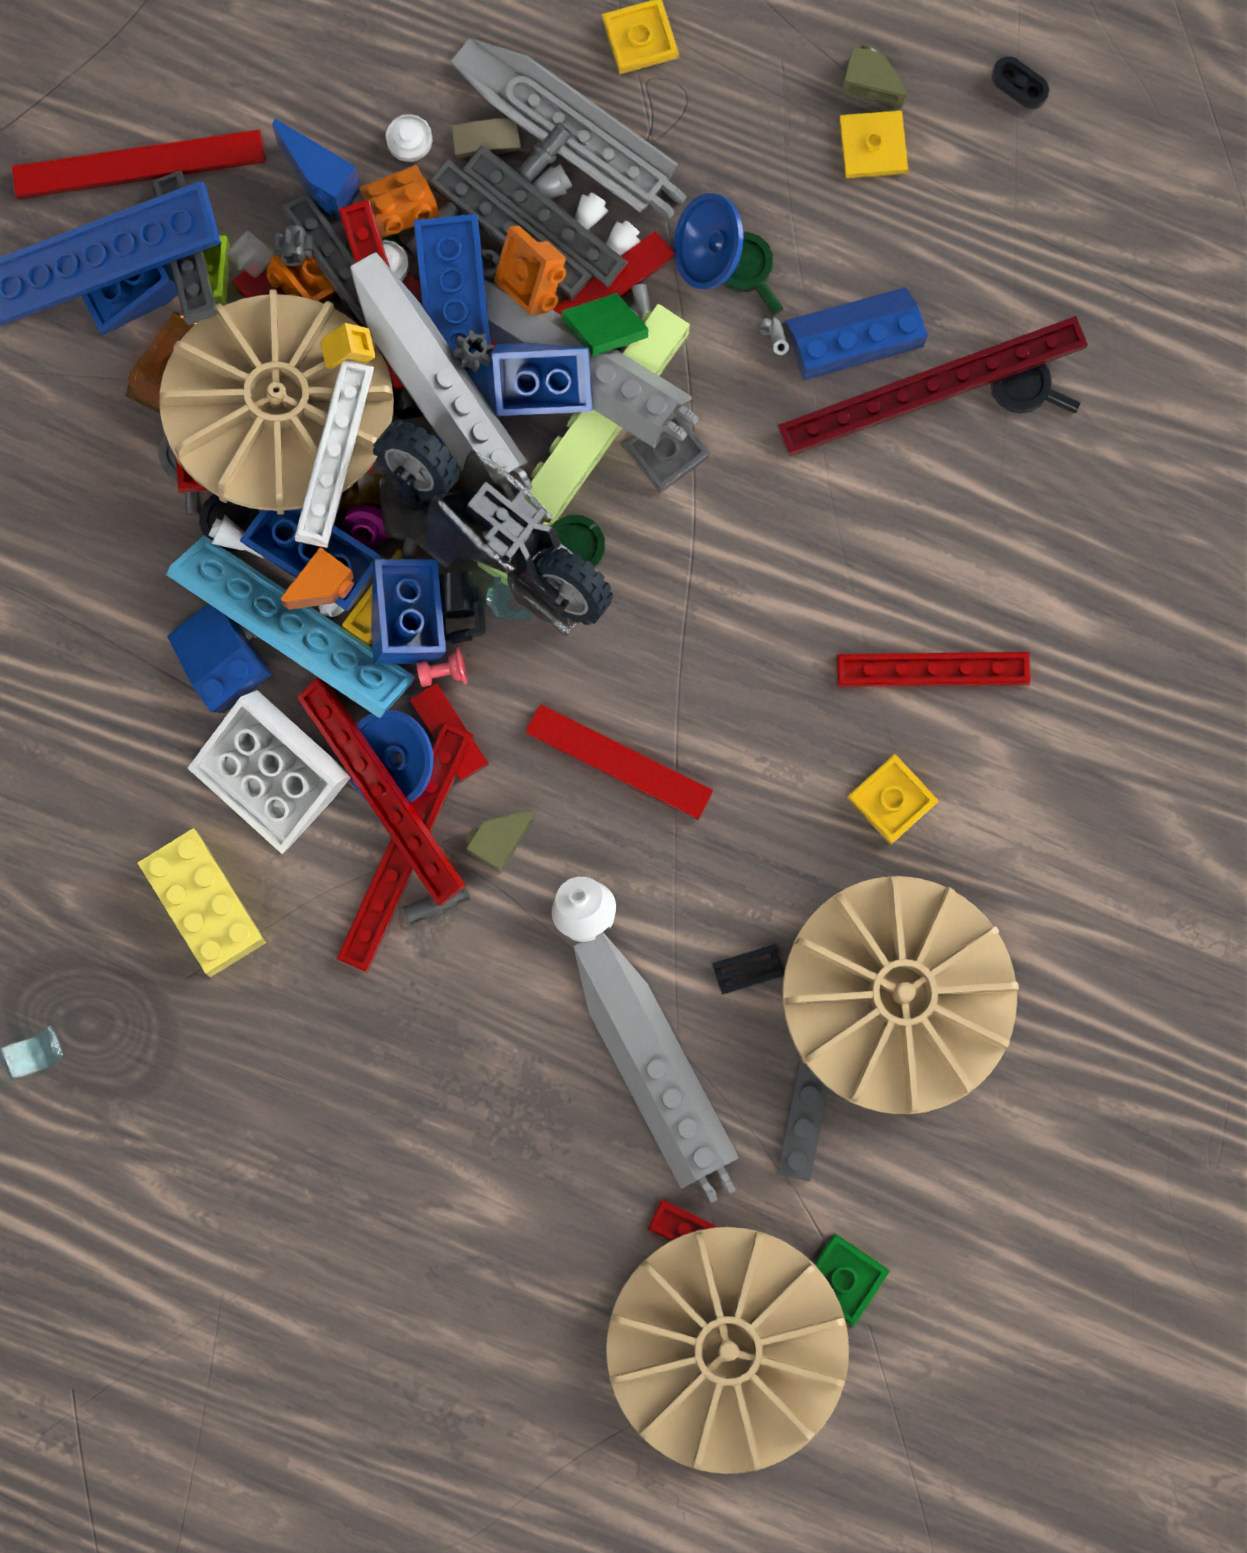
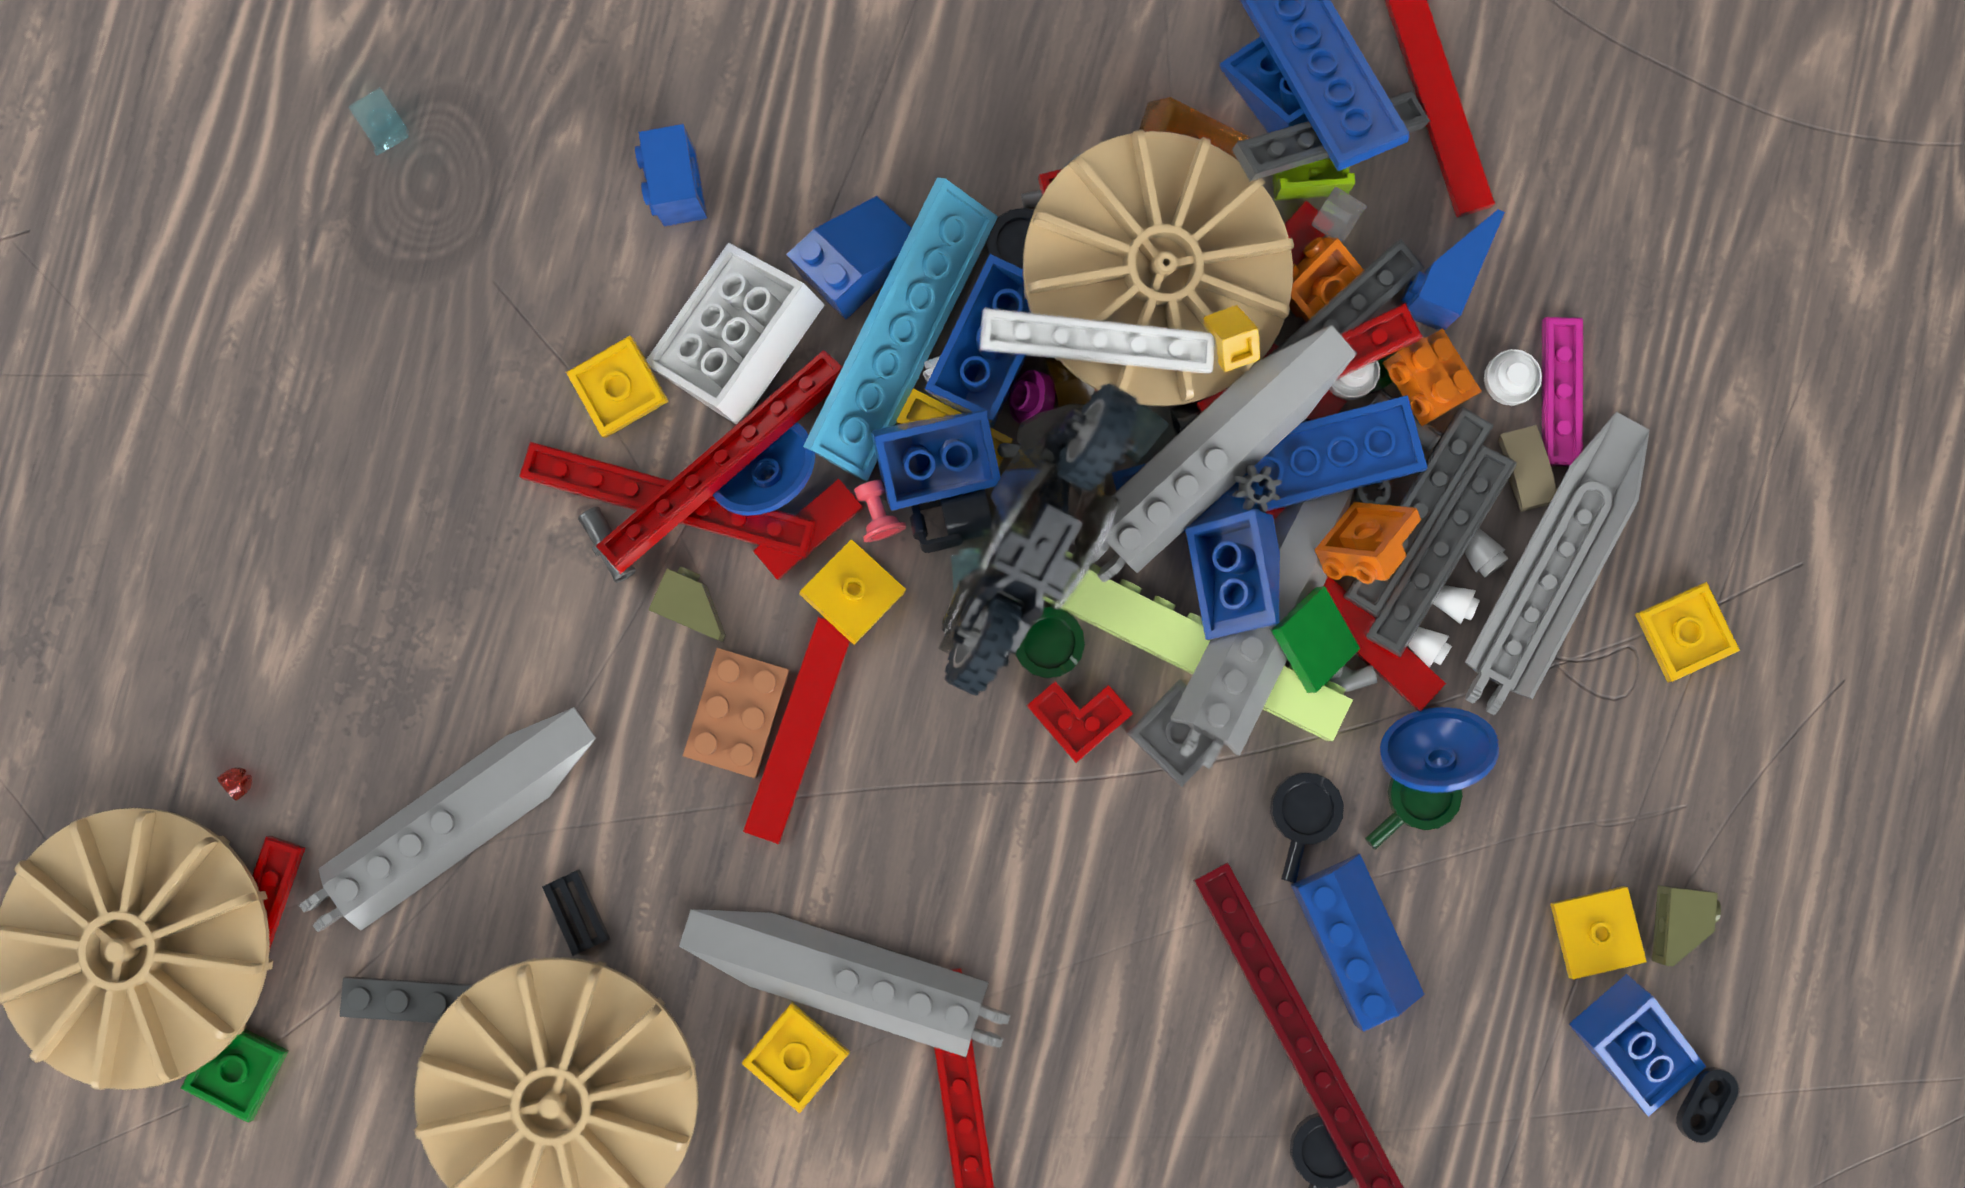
camera: 85 degrees right, 5 degrees up
(124, 801) = (671, 175): none -> blue brick
(201, 902) = (571, 281): light yellow brick -> none
(228, 534) = (1000, 240): white cone -> none
(293, 245) = (1353, 258): dark grey gear -> none
(300, 877) = (617, 386): none -> yellow plate
(319, 583) = (948, 351): orange slope -> none
(424, 100) = (1562, 389): none -> dark pink tile
(508, 700) = (852, 591): none -> yellow plate
(545, 152) = (1520, 538): dark grey pin -> none
(583, 909) = (616, 713): white cone -> none
(596, 1250) = (234, 782): none -> clear red hinge
(597, 812) = (736, 713): none -> nougat plate
(649, 532) = (1078, 728): none -> red plate
(744, 359) = (1306, 812): none -> black piece
(777, 335) = (1336, 848): light grey arm -> none
(831, 750) = (844, 977): none -> light grey hinge
(965, 127) = (1638, 1044): none -> blue slope

